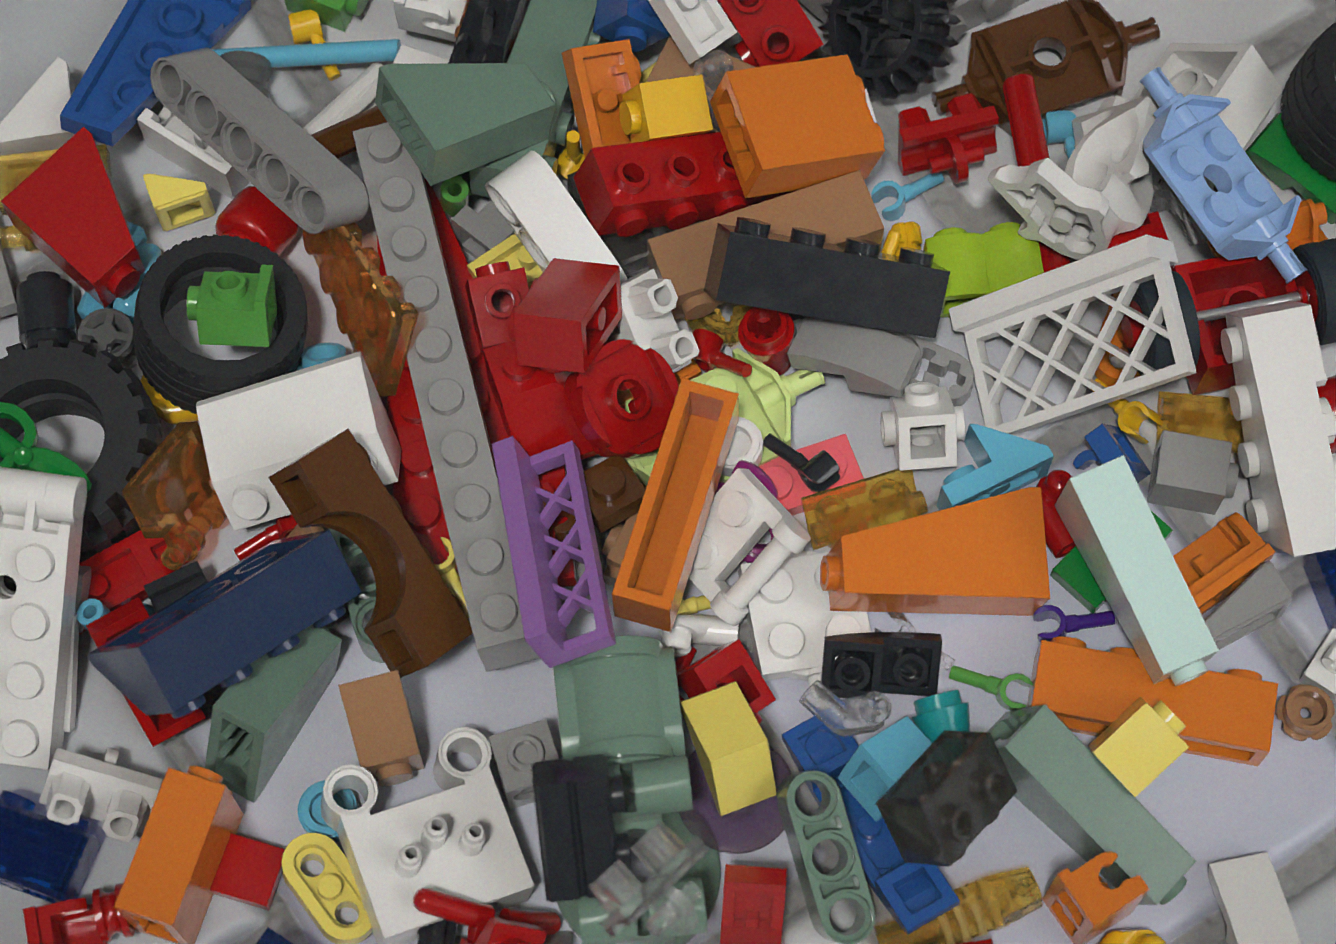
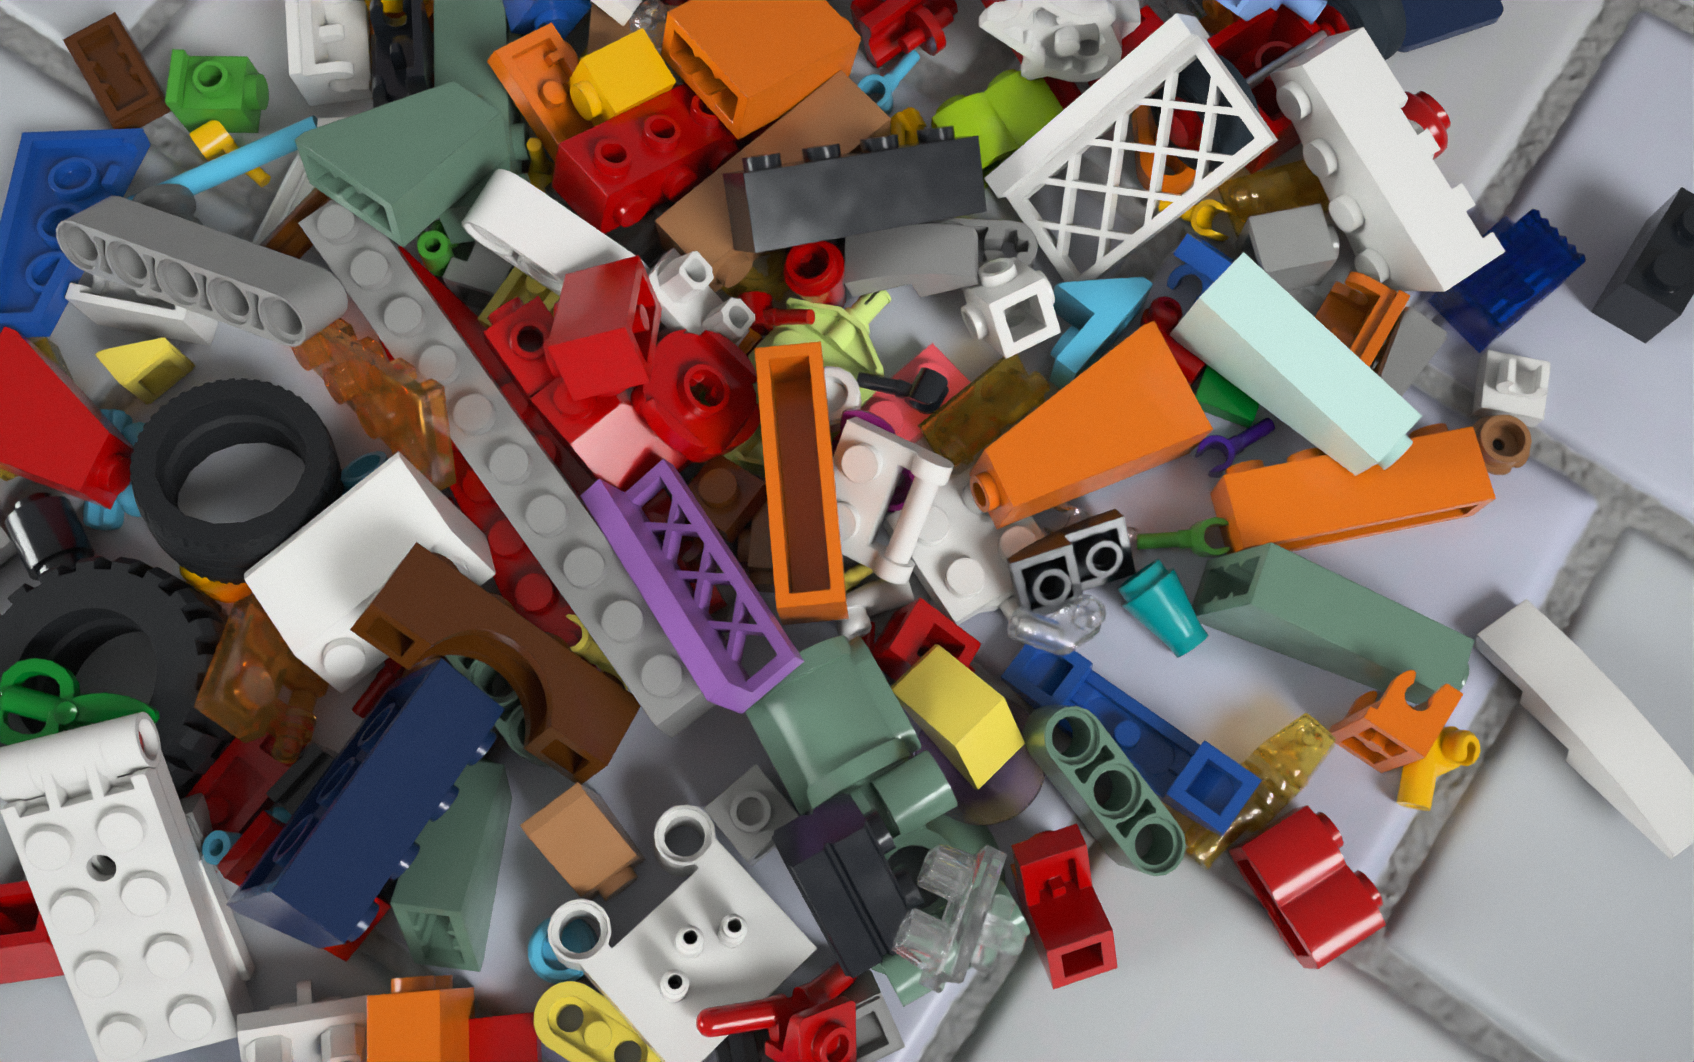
camera: 20 degrees left, 5 degrees up
(106, 328) = (118, 533): dark grey wheel -> none
(234, 307) = (241, 457): bright green brick -> none
(257, 219) = (238, 355): red head -> none
(882, 762) = (1129, 668): medium azure brick -> none
(947, 798) = (1208, 680): clear smoke brick -> none
(1140, 744) = (1375, 543): light yellow brick -> none

